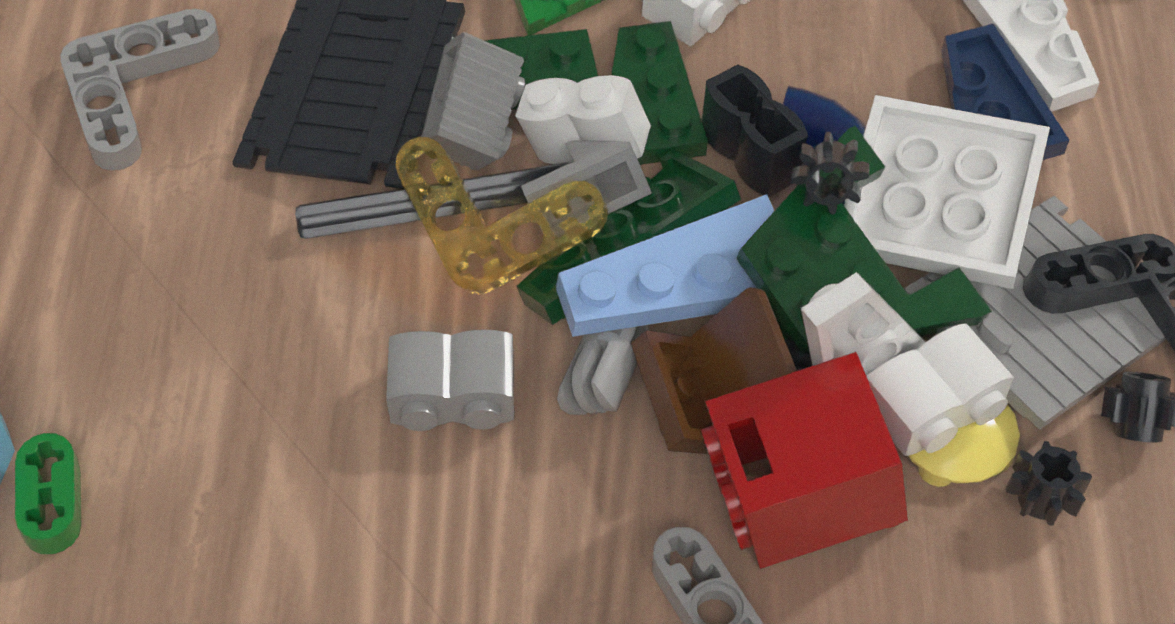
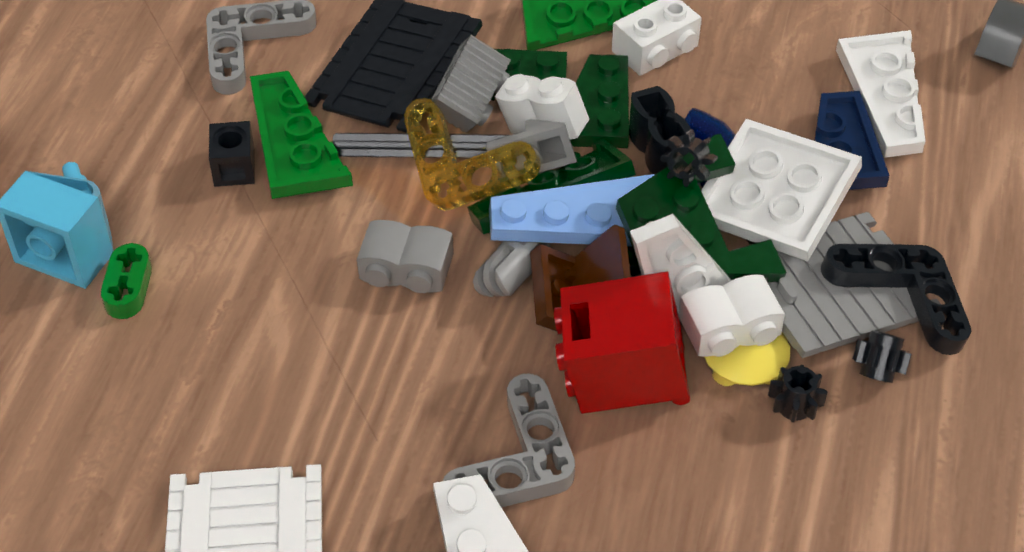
camera: 15 degrees right, 5 degrees down
(154, 264) = (231, 153): none -> black brick
(237, 227) = (293, 140): none -> green wing

